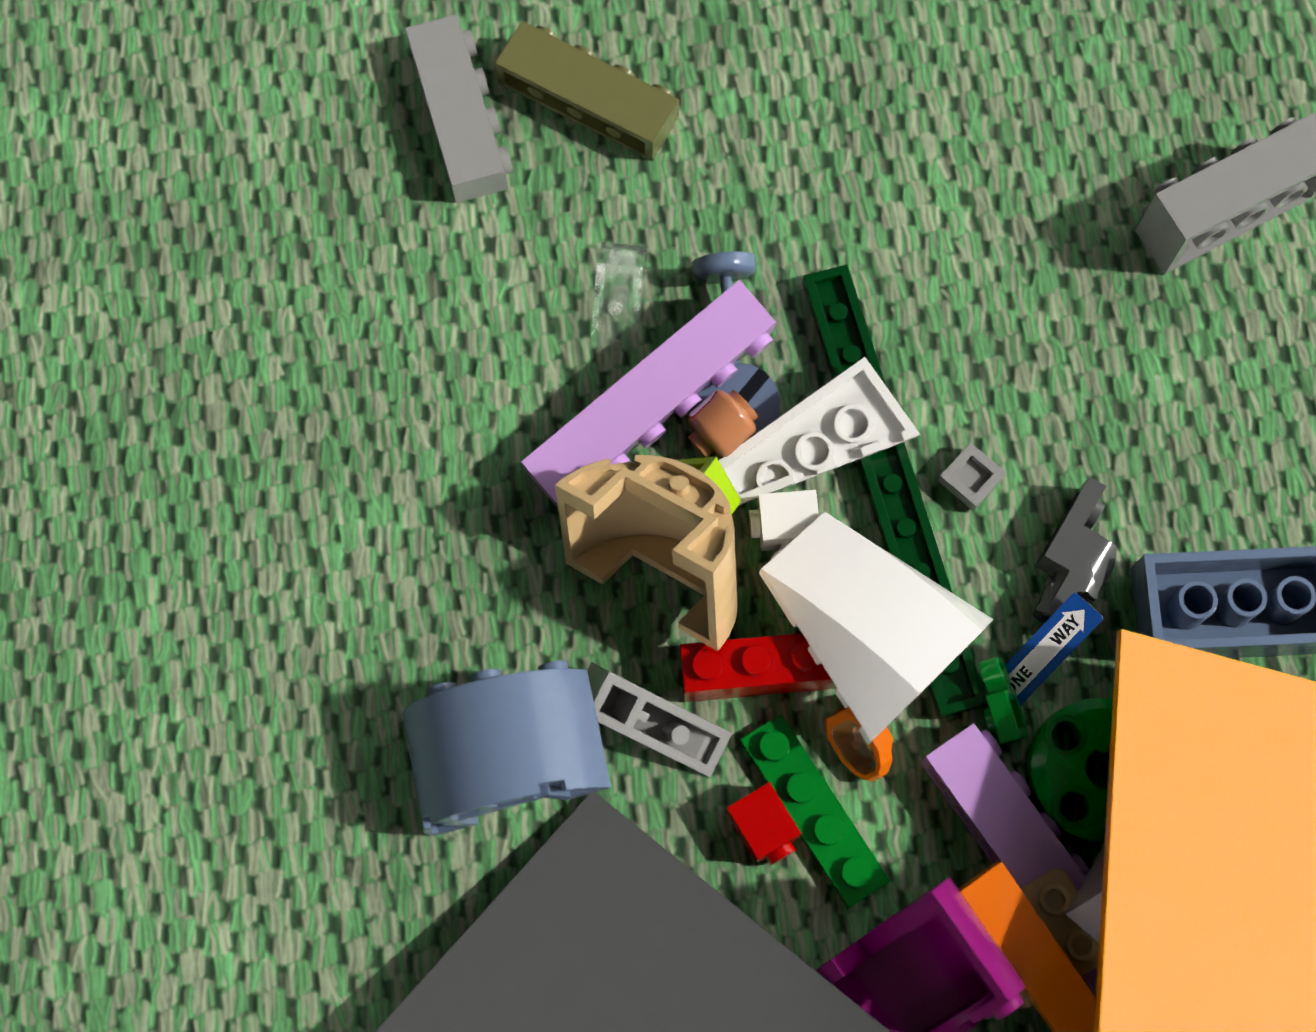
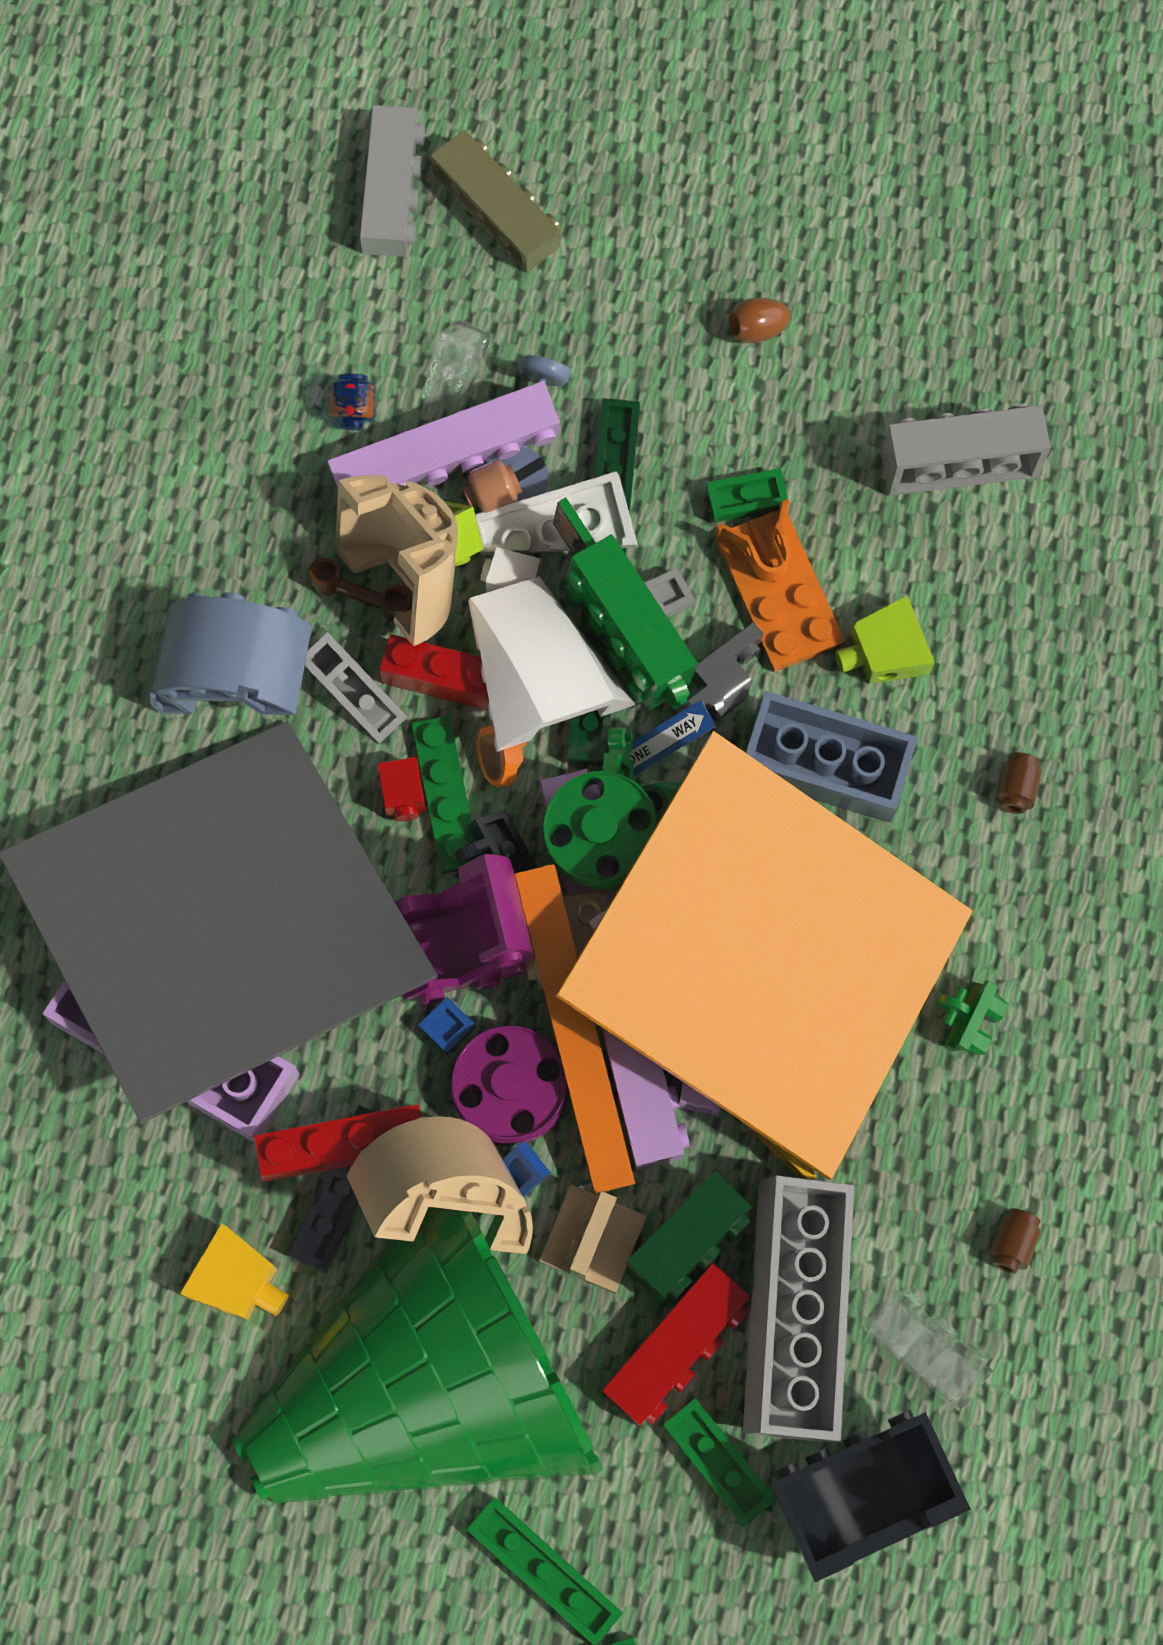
camera: 20 degrees right, 0 degrees up
(516, 379) = (352, 401): none -> clear blue head
(660, 606) = (327, 580): none -> reddish brown bar
(911, 855) = (497, 836): none -> black hinge
(939, 125) = (758, 319): none -> dark orange animal
(947, 523) = (624, 615): none -> green piece
(1011, 330) = (746, 495): none -> green plate
(1031, 795) = (597, 828): none -> green piece
(1091, 424) = (779, 588): none -> orange plate
(1245, 447) = (888, 645): none -> lime torso

